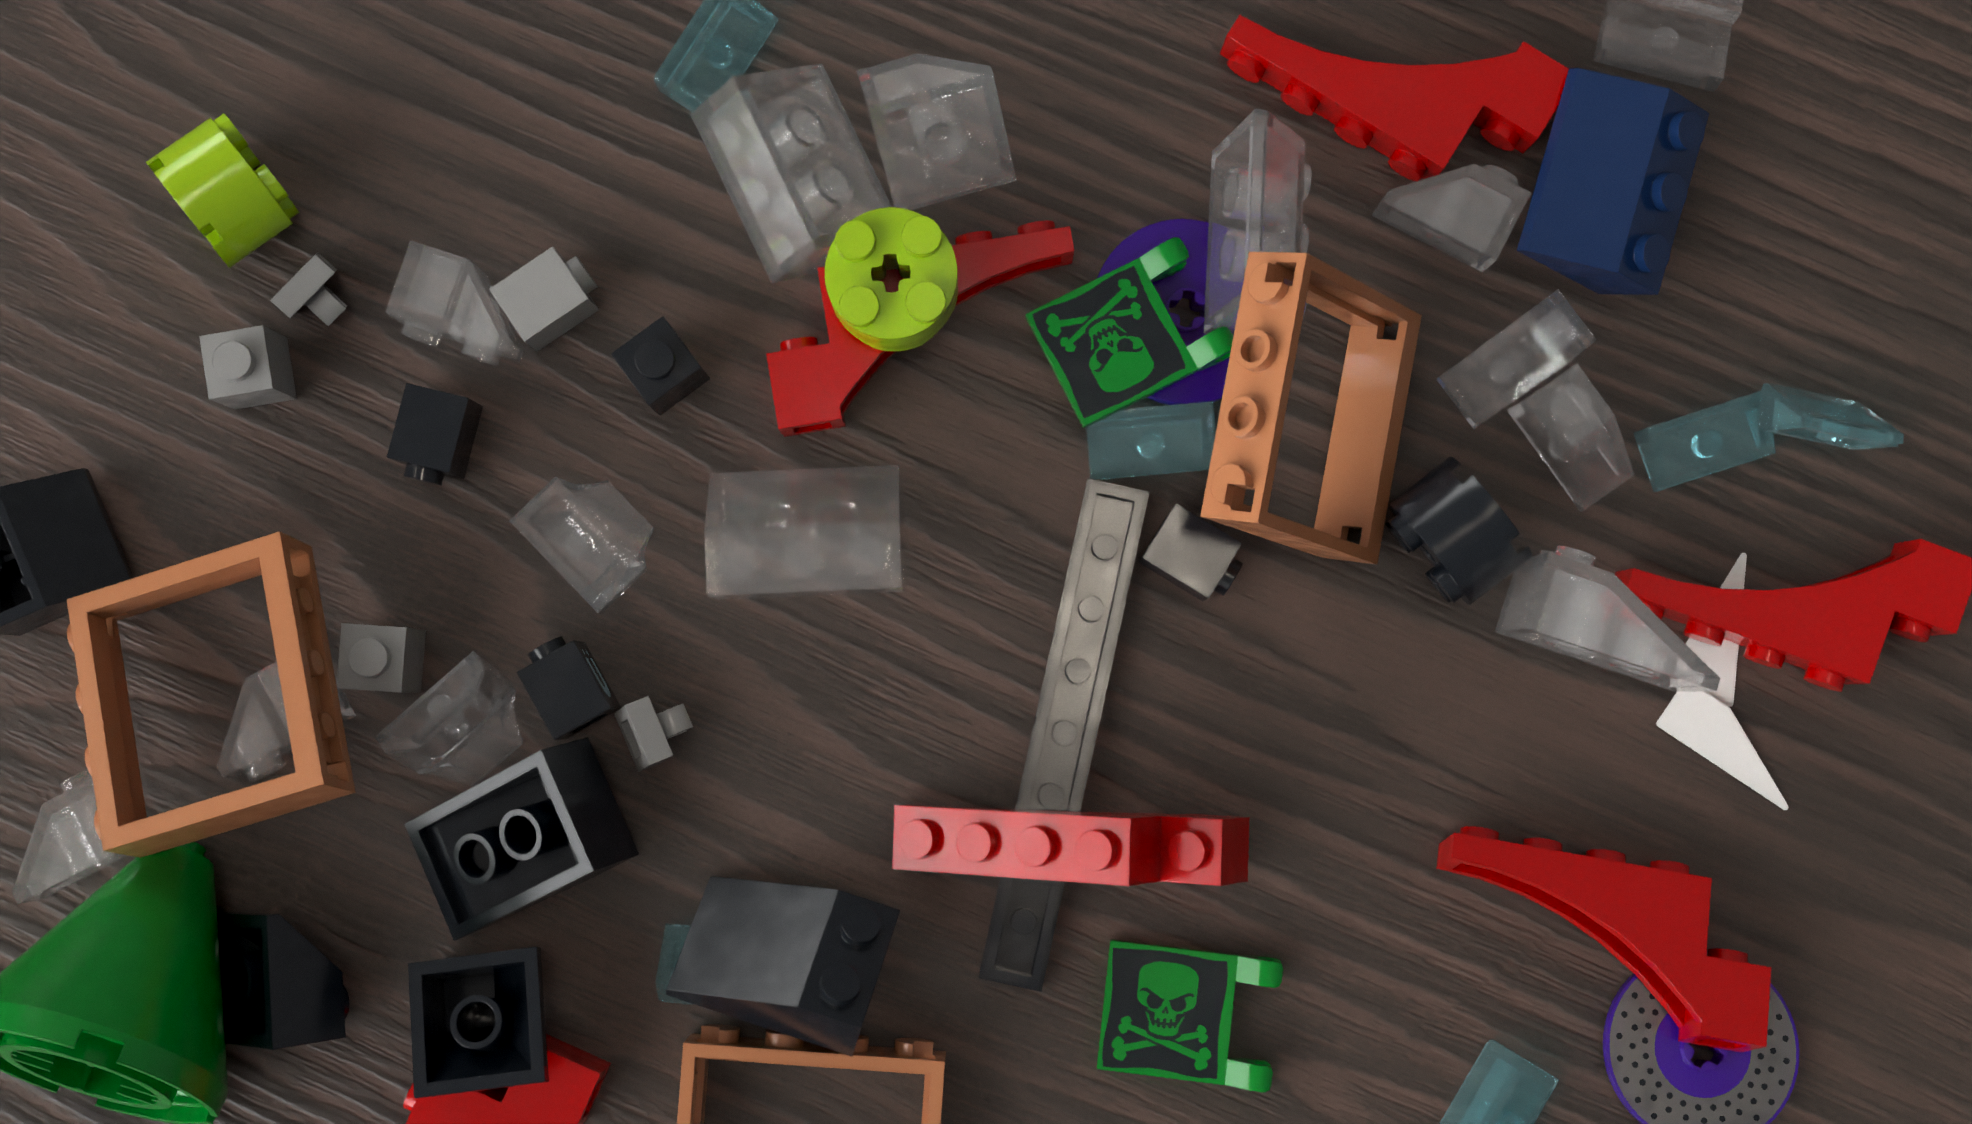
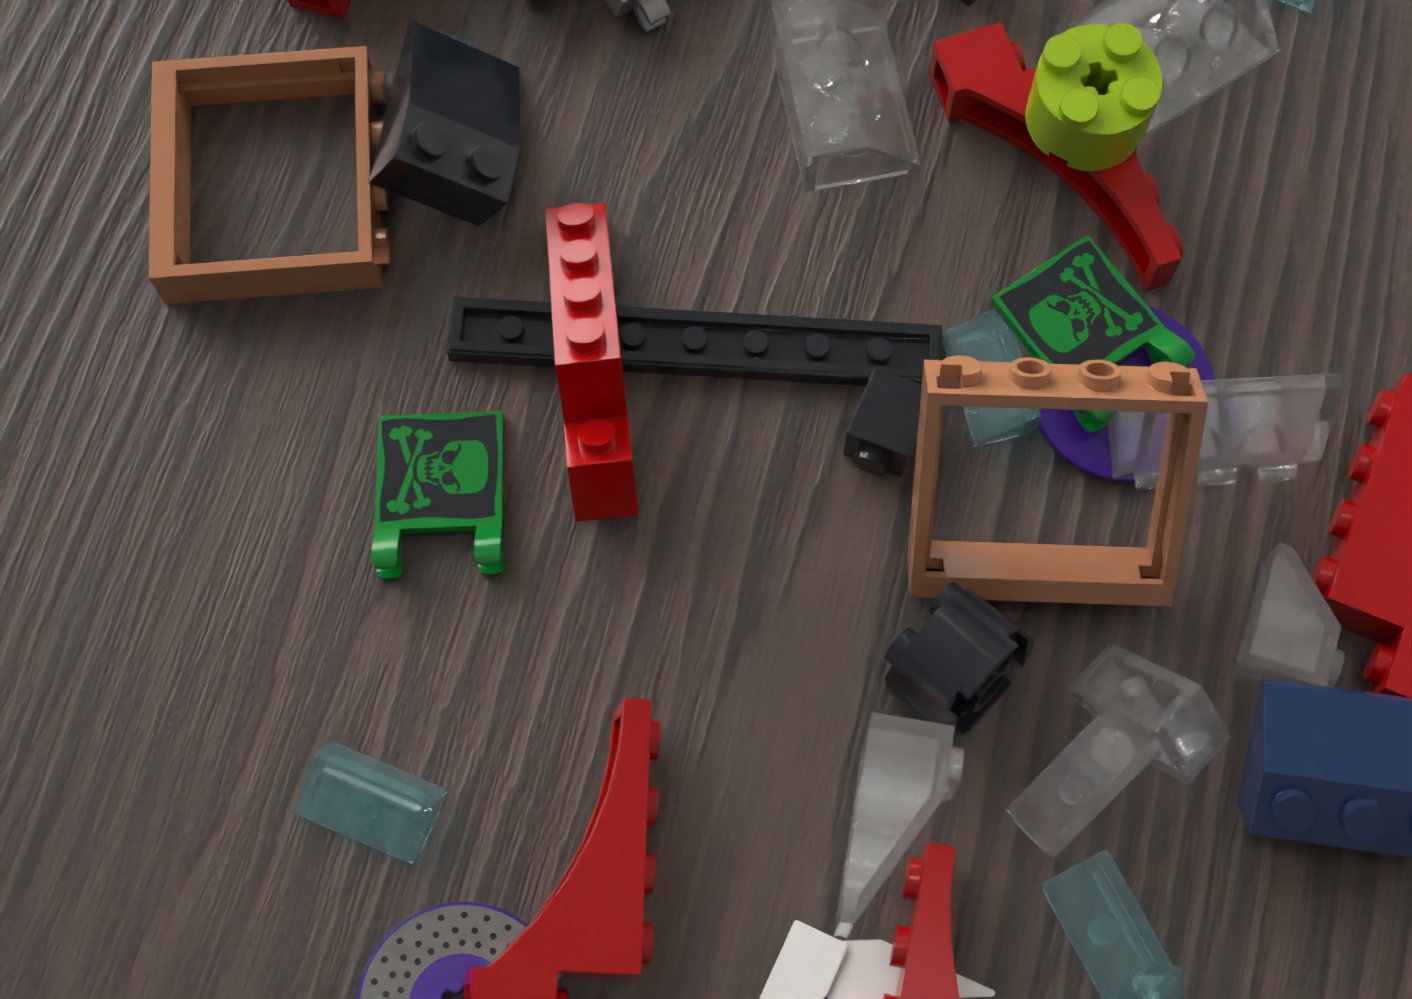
camera: 85 degrees right, 15 degrees down
(936, 128) = (1241, 139): clear slope -> none

